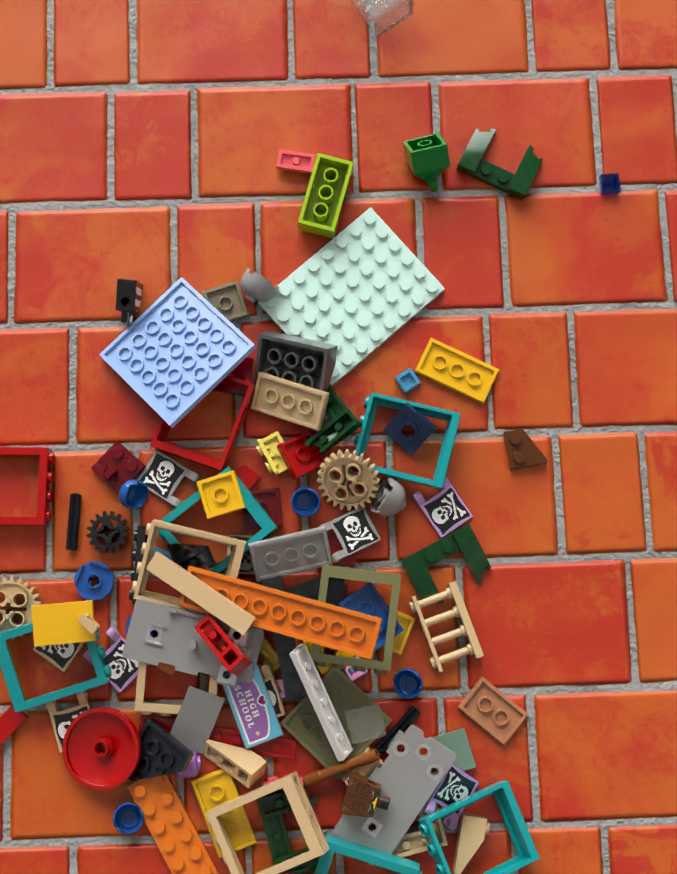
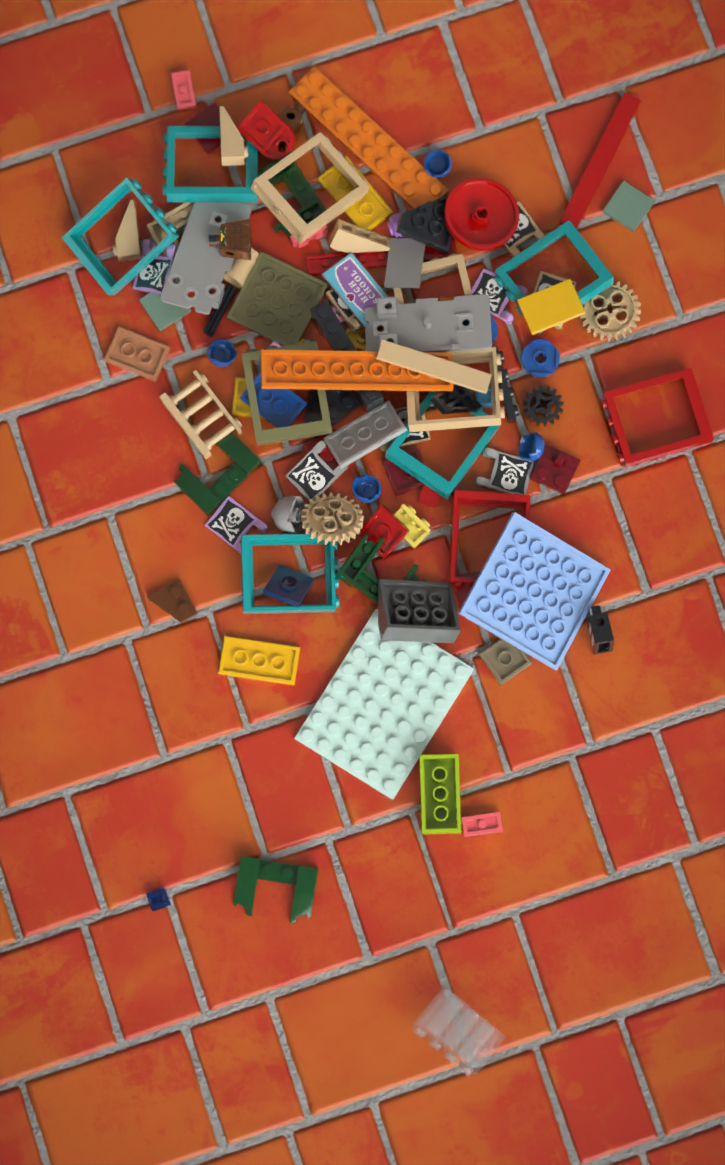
camera: 170 degrees right, 0 degrees up
(73, 522) = (579, 406): black axle -> none
(88, 622) = (526, 311): tan tile -> none
(221, 494) = (446, 466): yellow tile -> none
(223, 645) = (398, 327): red slope -> none
(257, 287) = (478, 681): light grey cylinder -> none
(290, 401) = (411, 576): tan tile -> none
(321, 702) = (295, 308): white tile -> none
(361, 760) = (244, 271): dark orange piece -> none
(365, 723) = (250, 306): clear piece -> none
(407, 380) = (304, 636): dark azure tile -> none
(427, 157) = (351, 864): green piece -> none

